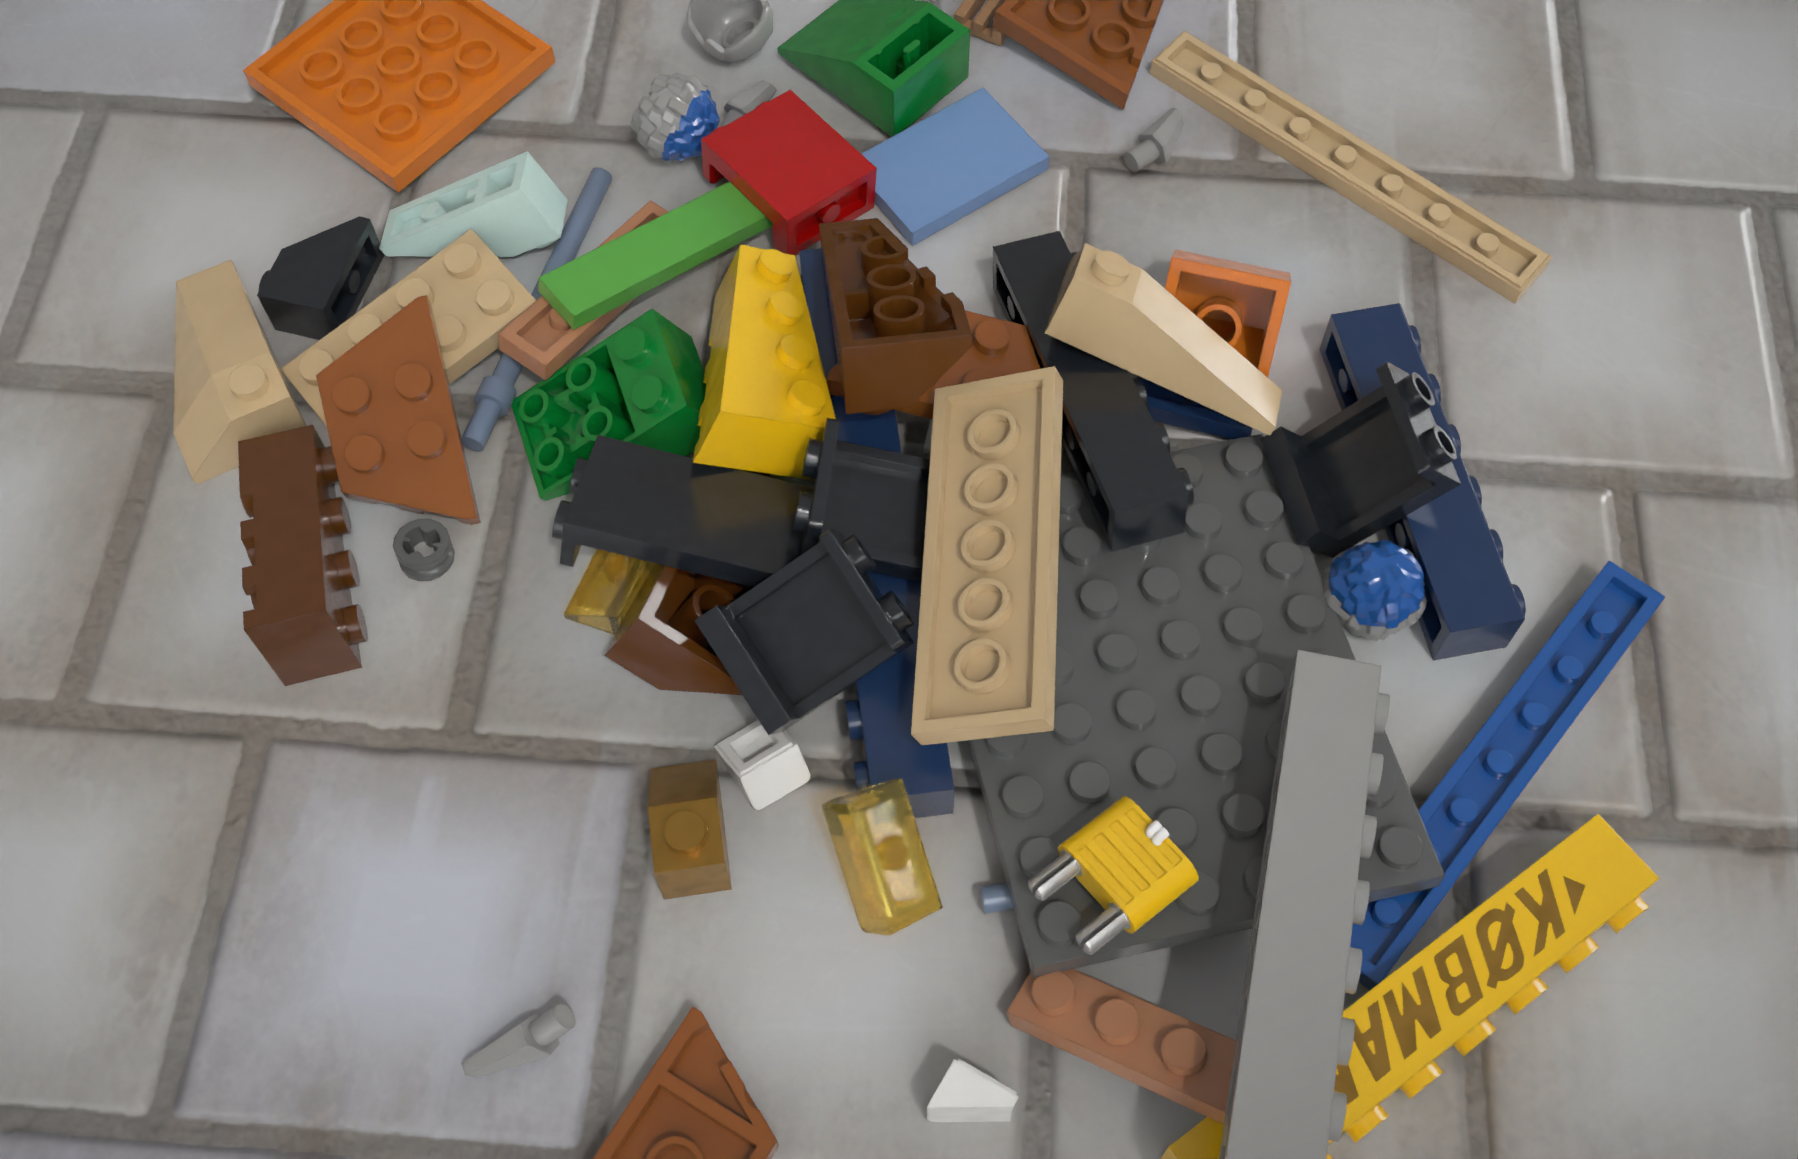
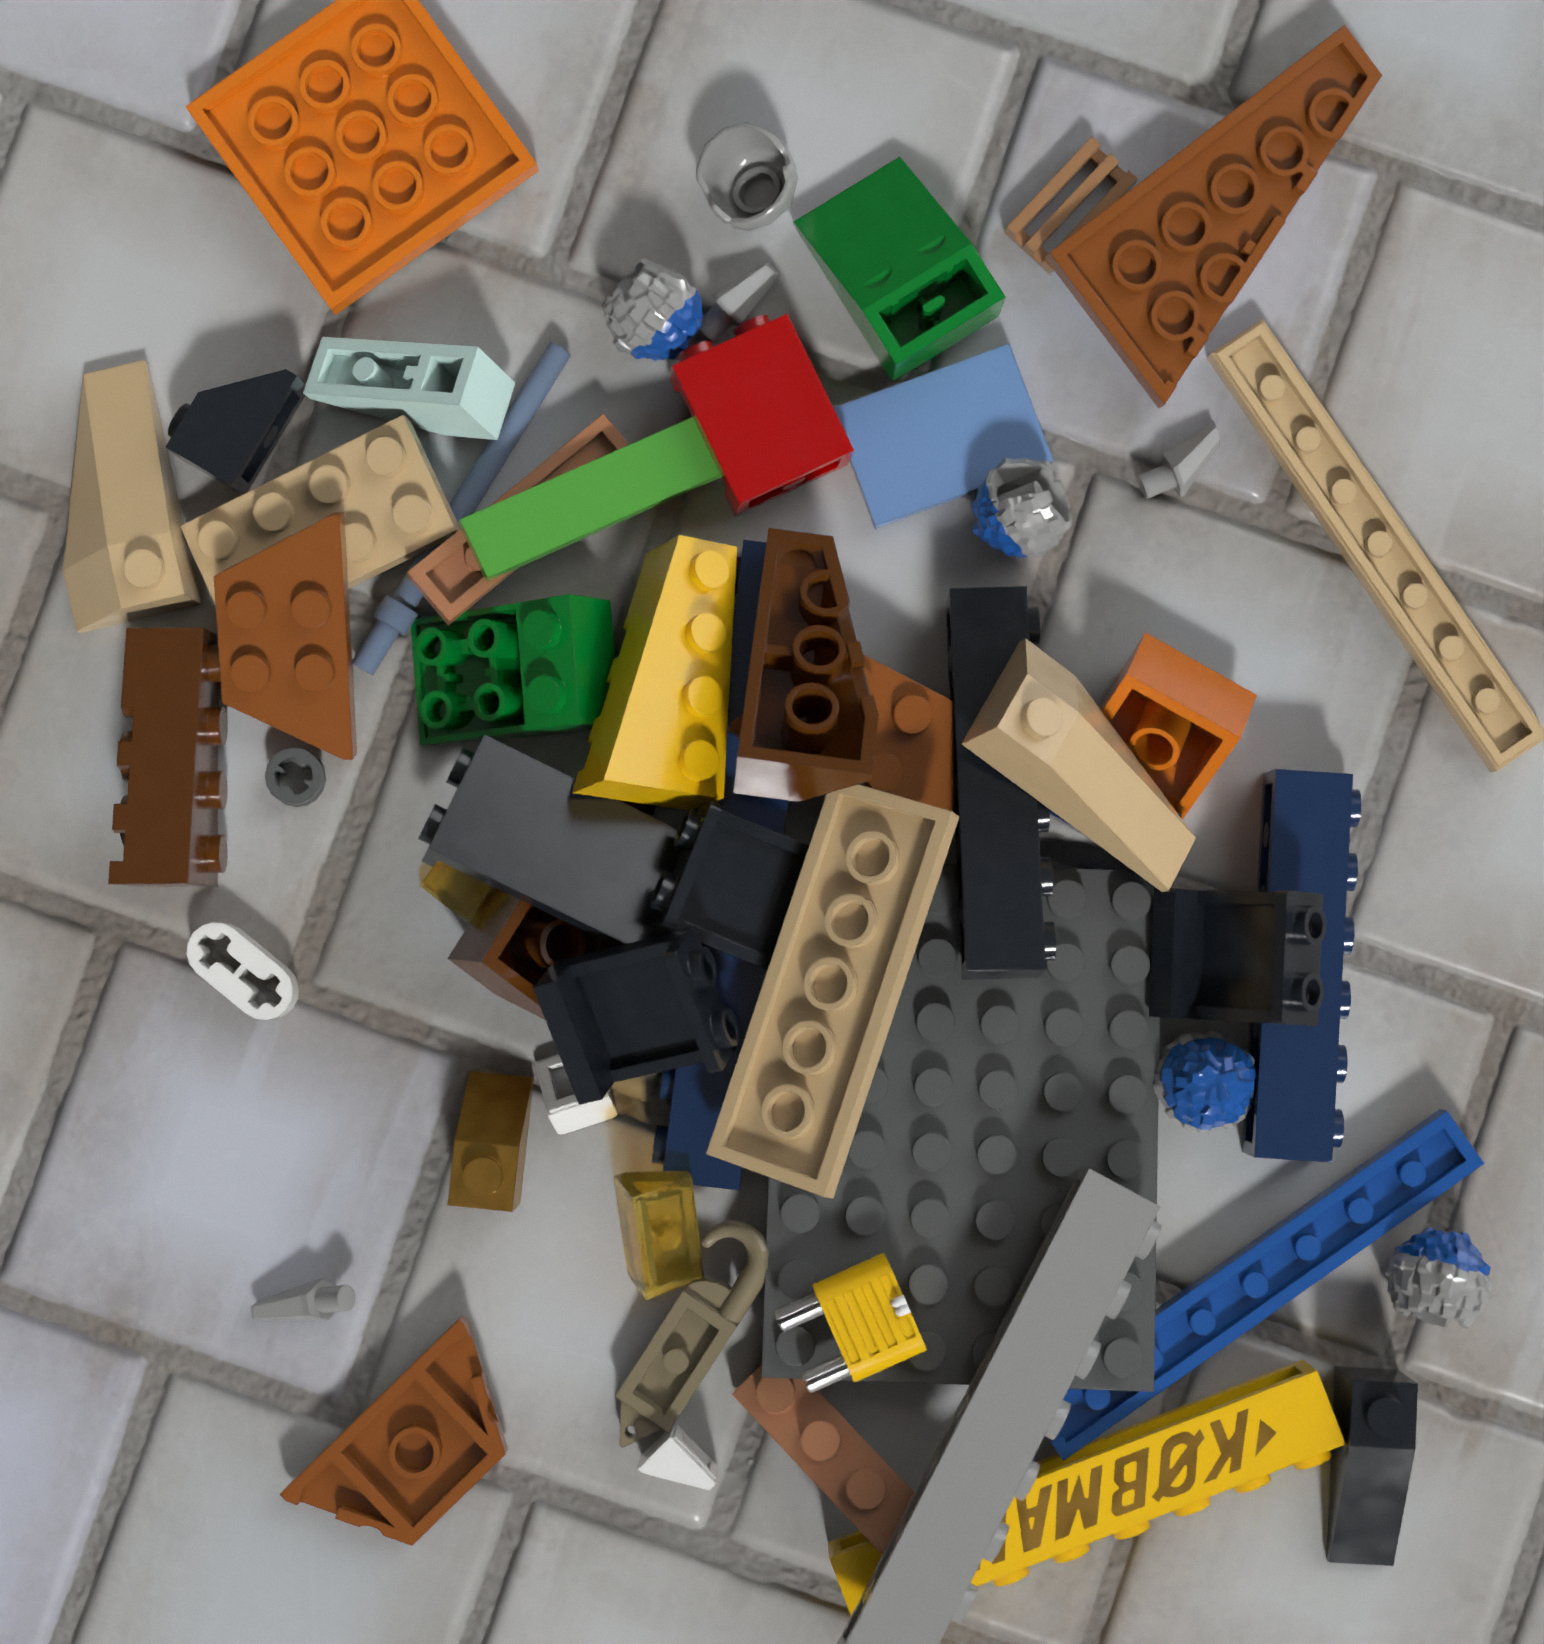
camera: 15 degrees right, 25 degrees up
(405, 717) = (233, 982): none -> white beam
(945, 967) = (690, 1339): none -> dark tan plate
(1034, 186) = (1021, 508): none -> light grey piece
(1670, 708) = (1439, 1278): none -> light grey piece
(1695, 911) = (1374, 1467): none -> black slope

